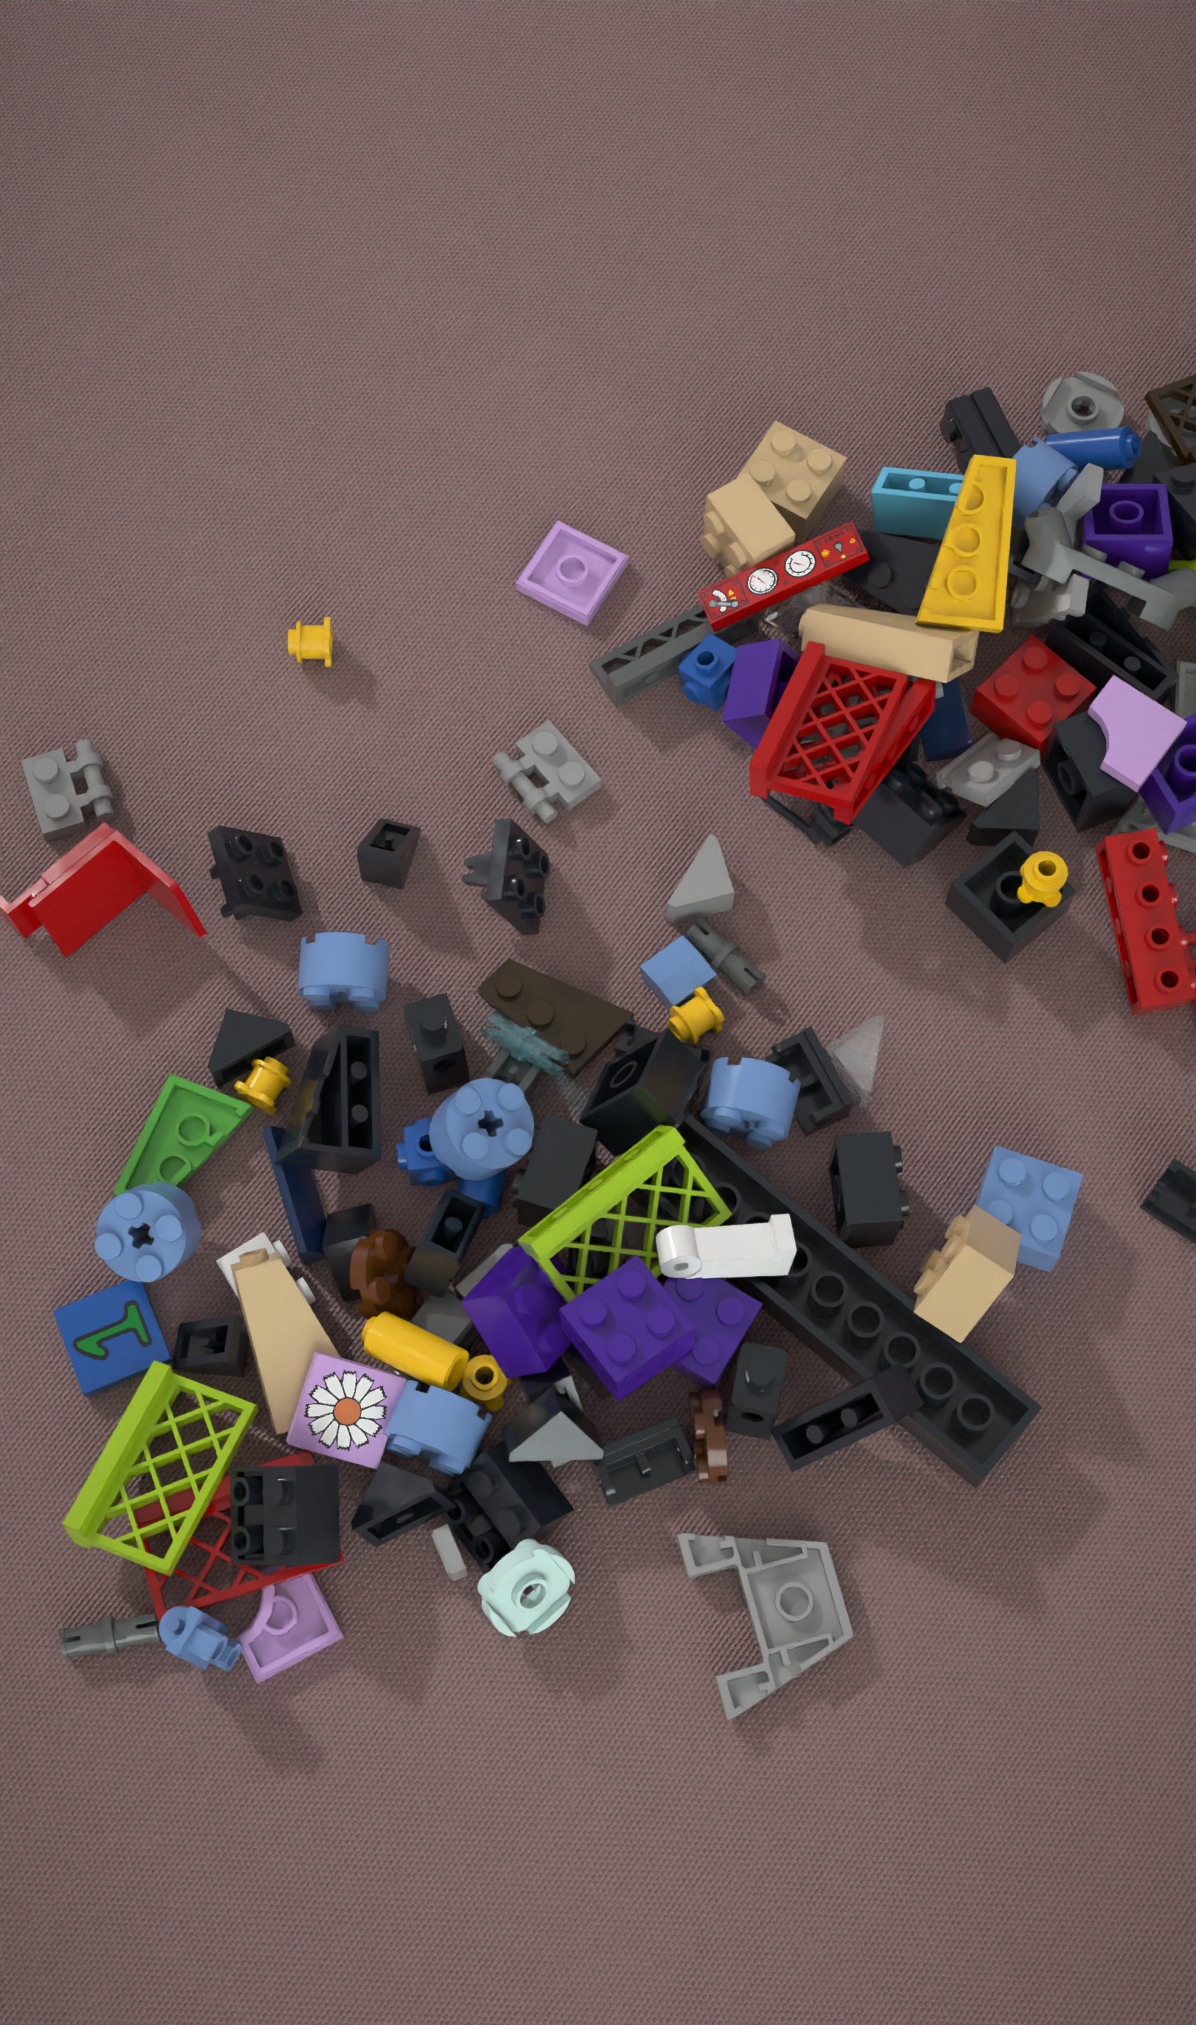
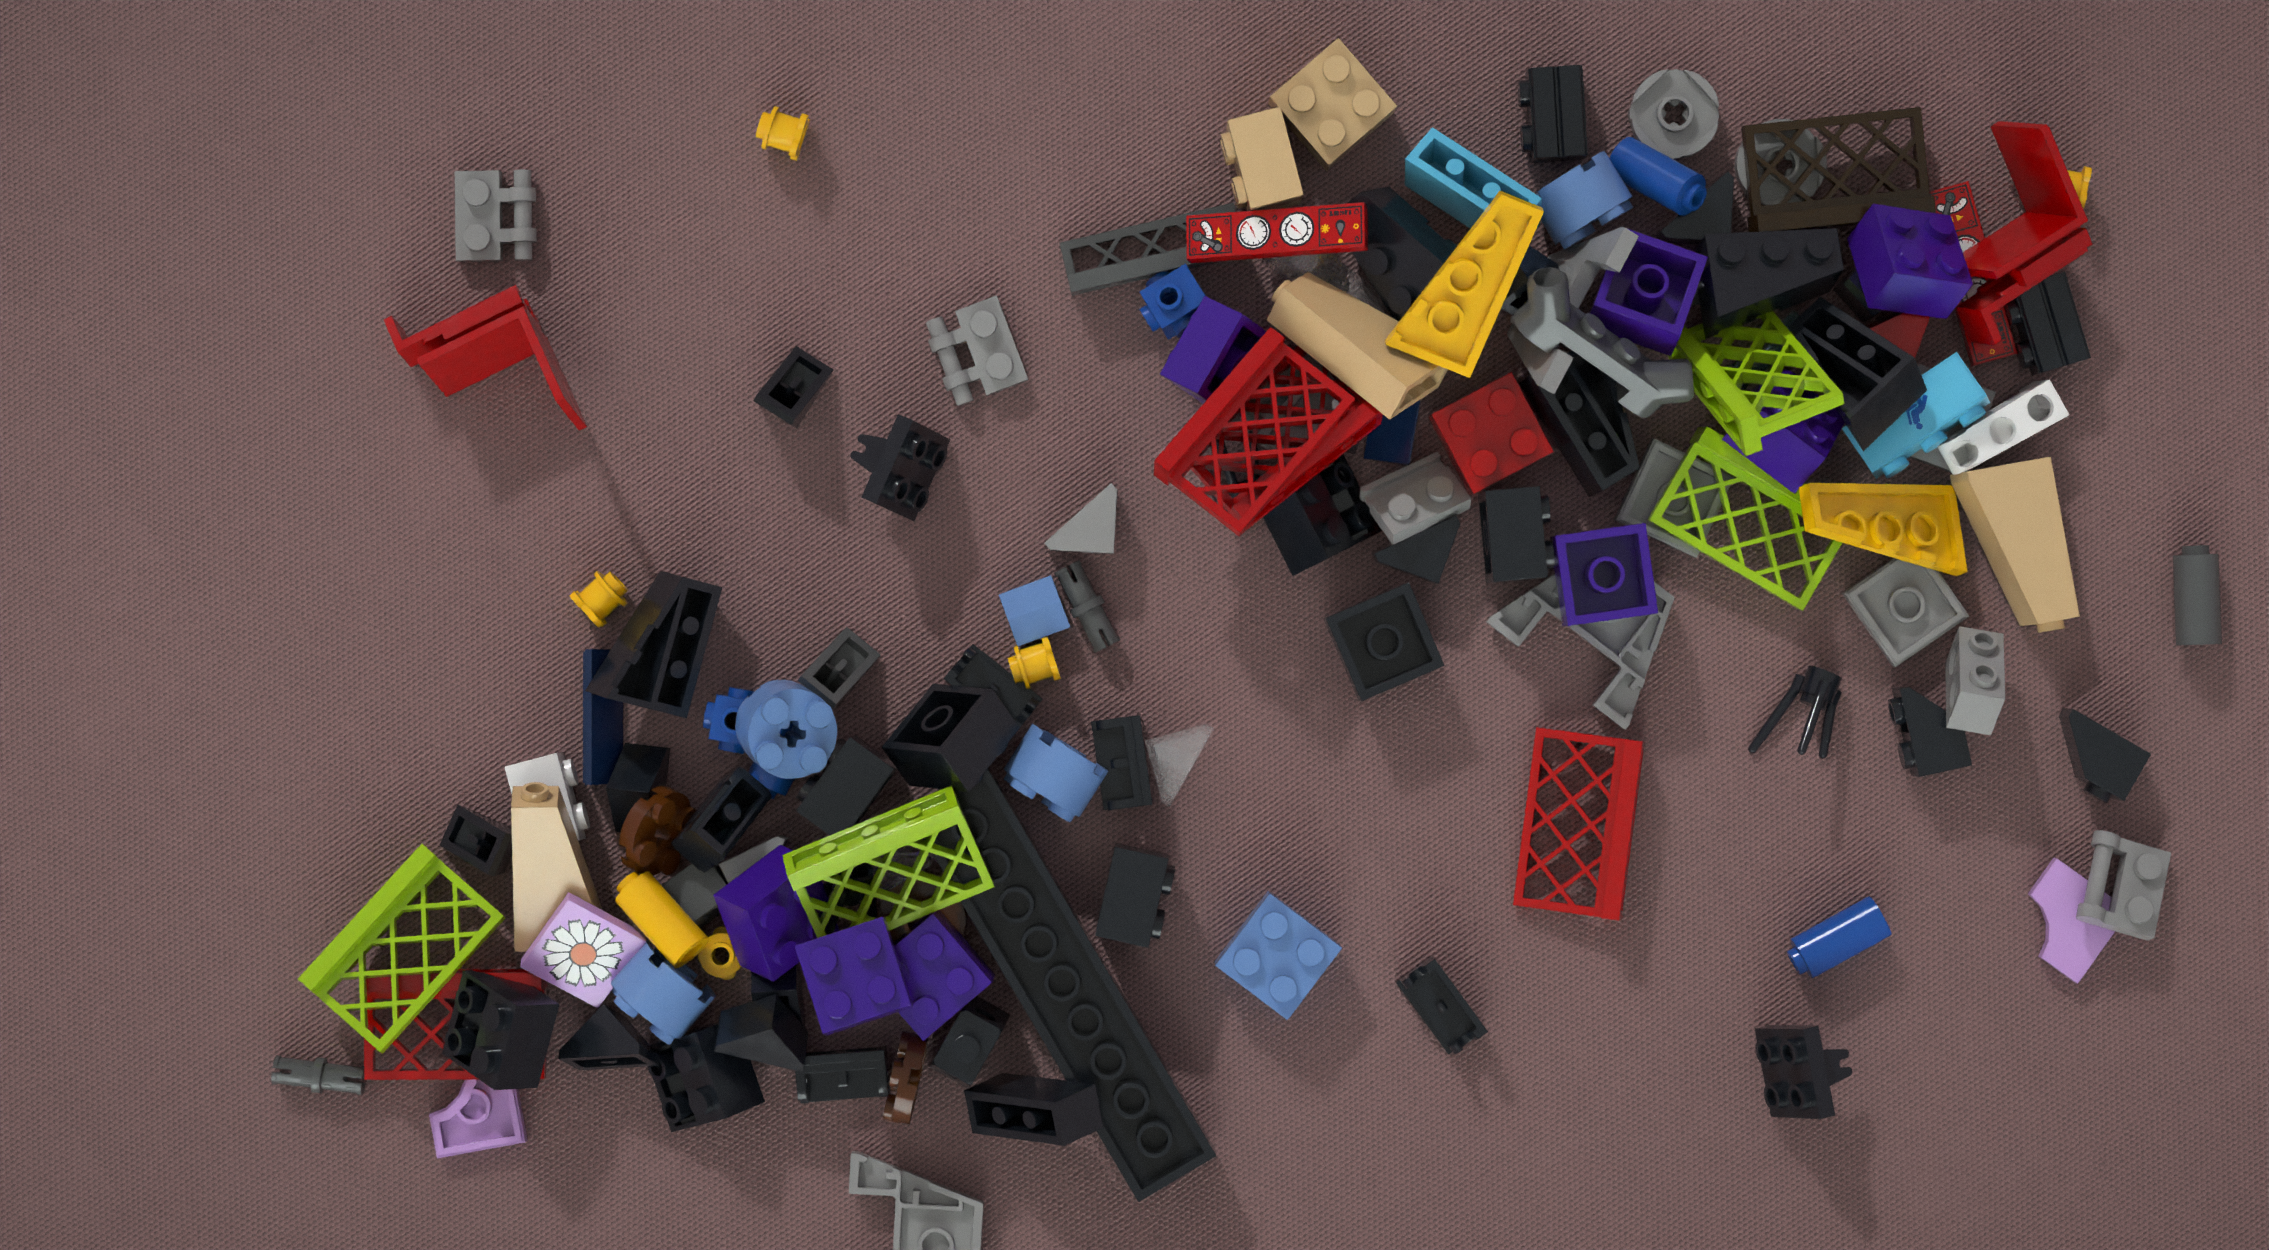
camera: 20 degrees right, 20 degrees up
(112, 1336) = (392, 798): blue tile -> none
(124, 1239) = (449, 718): medium blue brick -> none
(181, 1134) = (503, 626): bright green wing -> none
(198, 1638) = (394, 1110): medium blue hips -> none
(242, 1040) = (593, 549): black slope -> none
(253, 874) = (650, 380): black plate -> none
(343, 971) = (707, 512): medium blue brick -> none
(436, 1039) = (776, 609): black torso -> none
(449, 1553) = (641, 1102): light grey tile -> none
(524, 1566) = (698, 1160): light aqua plate -> none
(525, 1044) = (862, 638): clear light blue pin -> none
(557, 1011) = (902, 612): dark brown wing -> none
(572, 573) = (1076, 131): lavender tile -> none
(727, 1250) = (974, 926): white leg -> none
(966, 1272) = (1193, 1011): tan brick -> none
(1041, 887) = (1397, 654): yellow brick -> none
(1135, 731) = (1561, 529): lavender tile -> none
(1145, 921) = (1505, 711): red brick -> none

